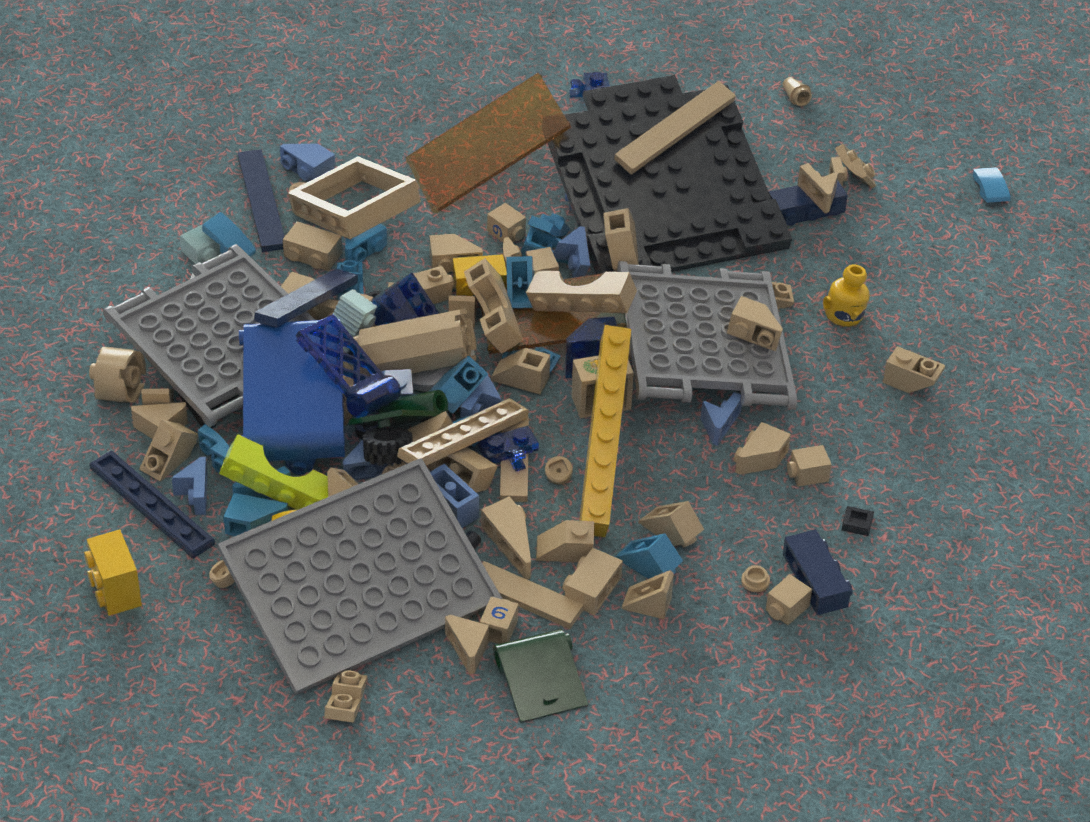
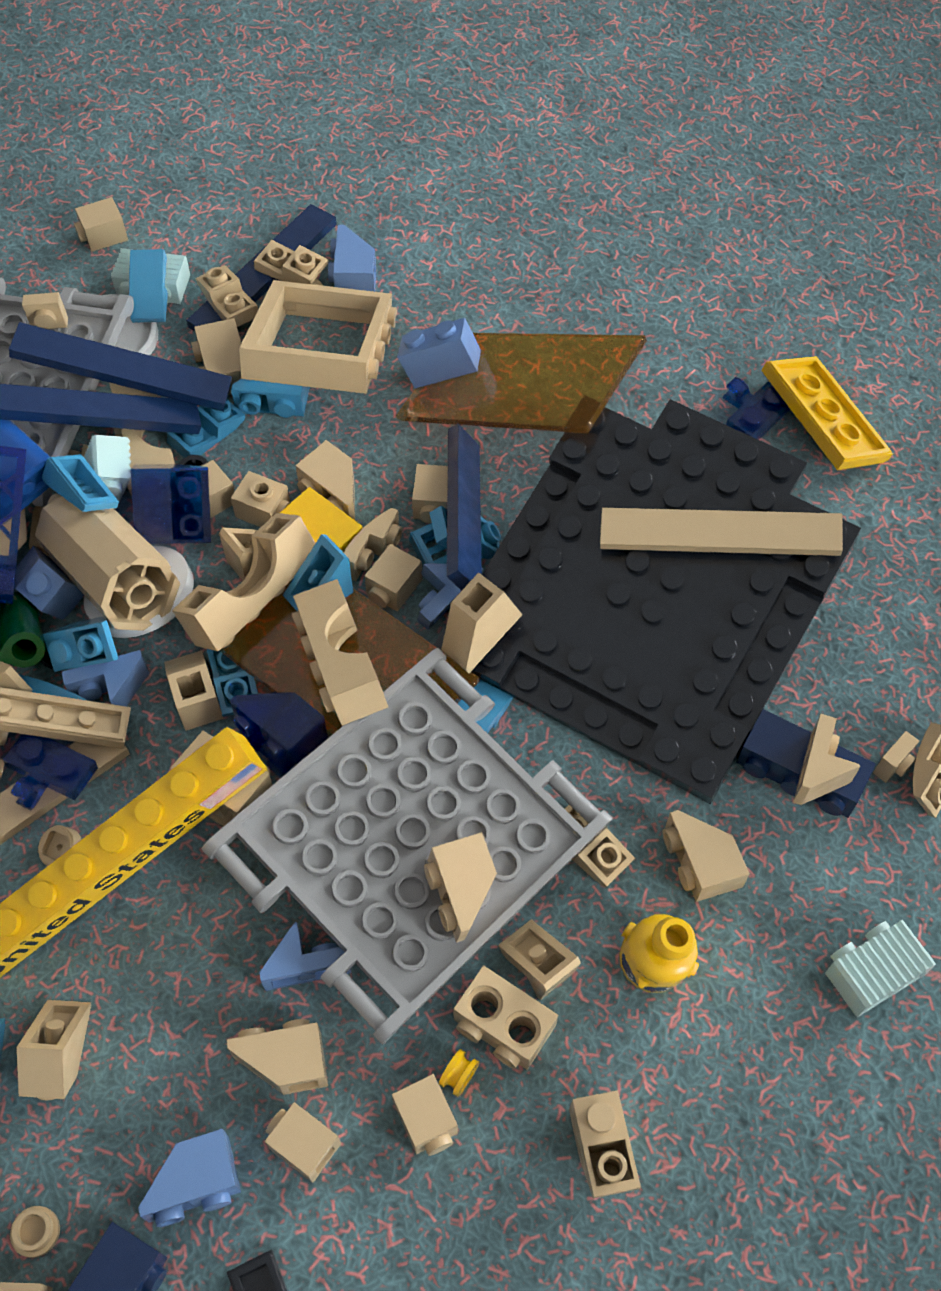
camera: 50 degrees right, 15 degrees up
(140, 238) = (100, 224): none -> tan brick
(215, 274) = (45, 310): none -> tan plate
(265, 219) = (226, 295): none -> tan slope
(286, 180) = (290, 265): none -> tan slope
(288, 272) = (120, 366): none -> dark blue tile
(359, 320) = (78, 483): none -> dark azure slope
(426, 161) = (439, 353): none -> medium blue brick
(539, 208) = (463, 508): none -> dark blue tile
(624, 66) = (827, 412): none -> yellow tile
(788, 507) = (193, 1175): none -> medium blue slope
(811, 337) = (539, 957): none -> tan slope
(815, 261) = (706, 855): none -> tan slope
(822, 369) = (513, 1009): none -> tan brick
(831, 400) = (458, 1072): none -> yellow bush
(840, 420) = (426, 1116): none -> tan brick
(925, 245) = (878, 967): none -> light aqua brick

